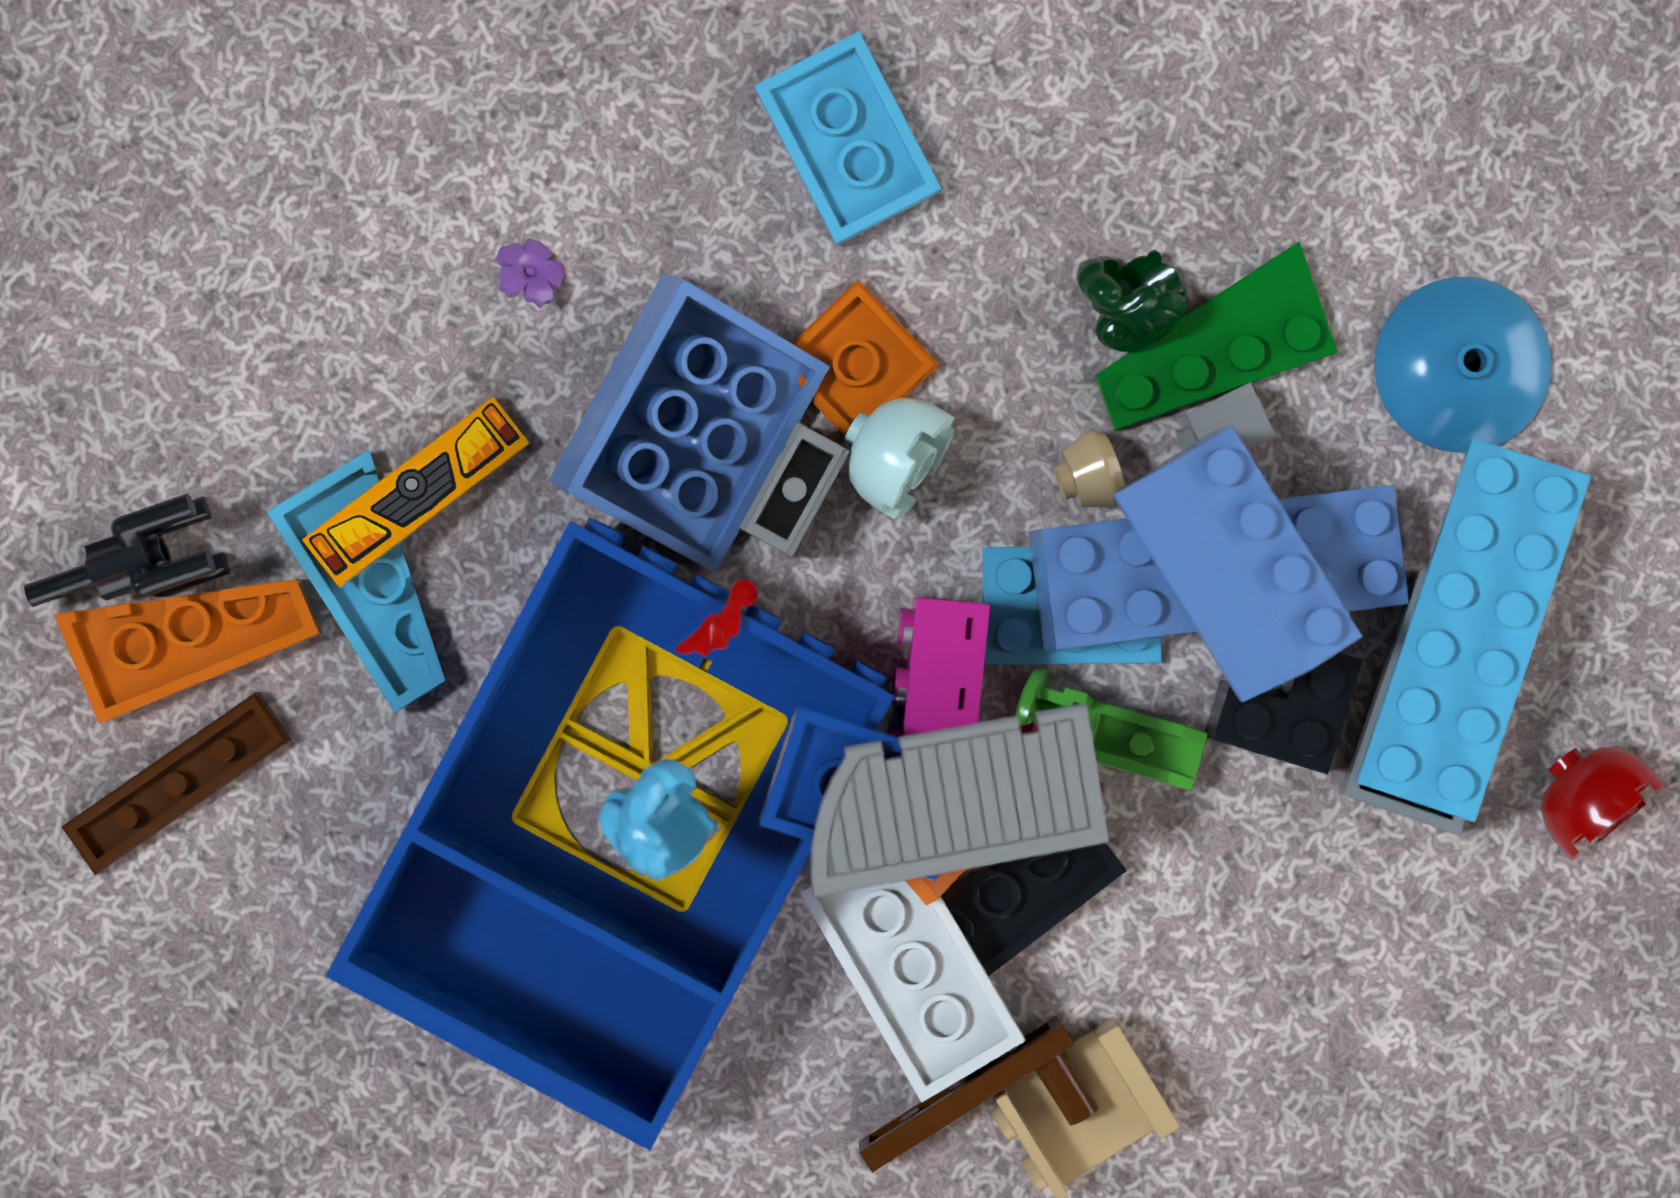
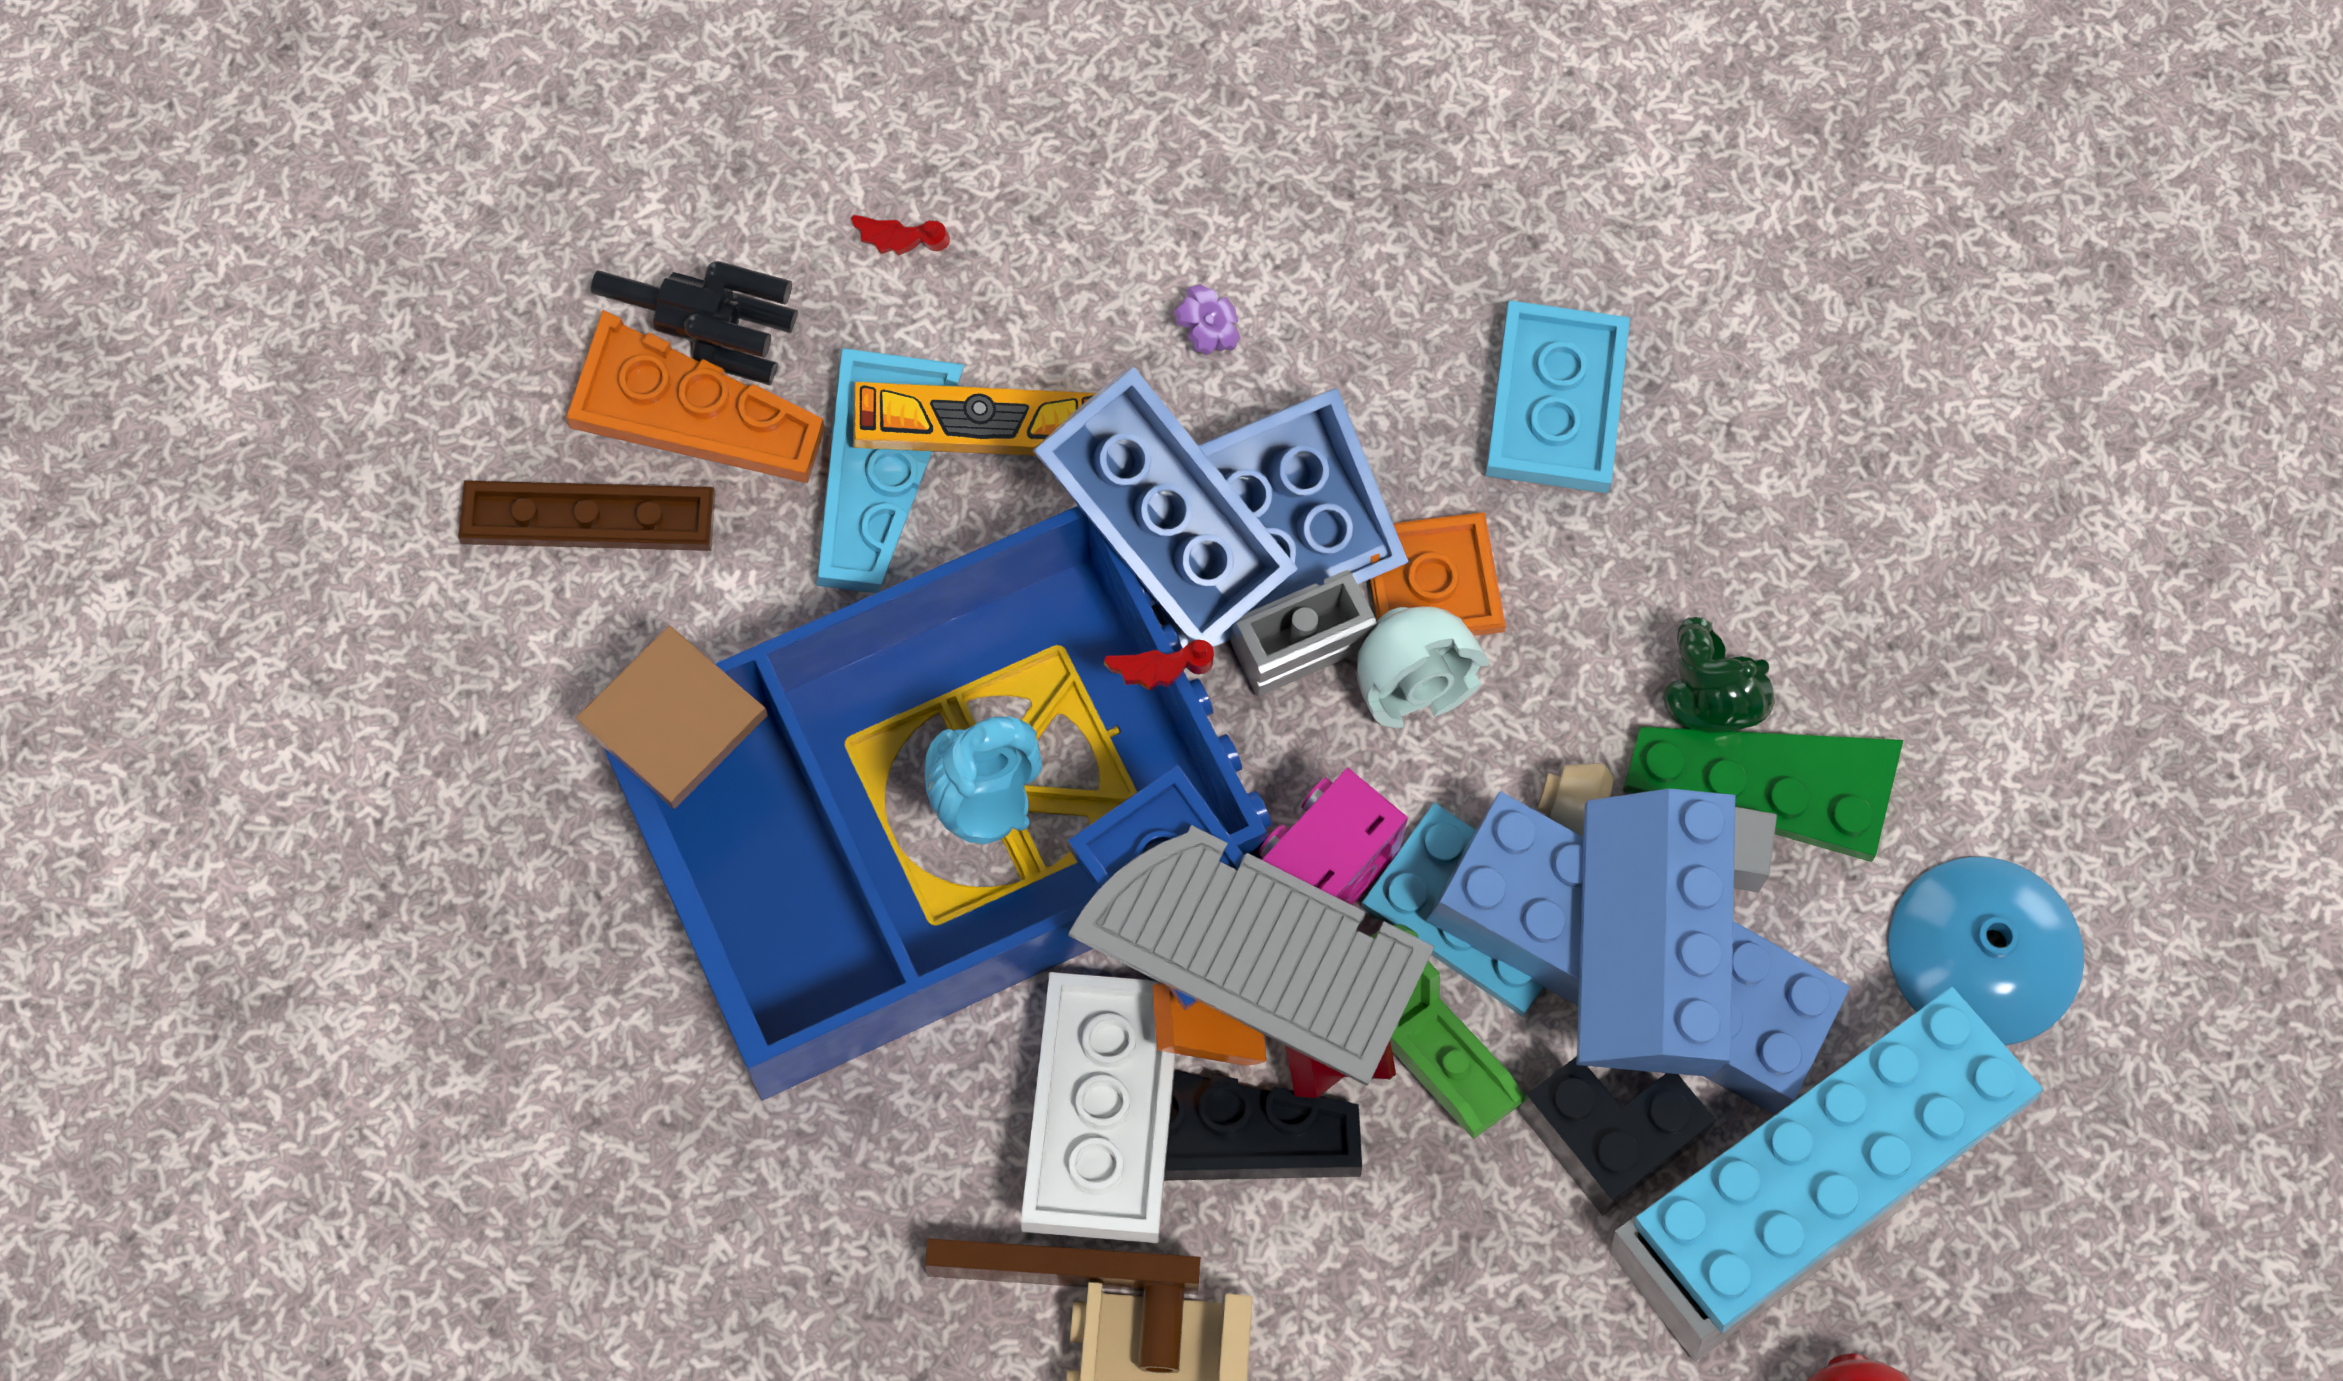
camera: 30 degrees right, 20 degrees down
(228, 377) = (894, 237): none -> red piece
(386, 936) = (671, 716): none -> medium nougat tile
(627, 493) = (1164, 507): none -> medium blue slope

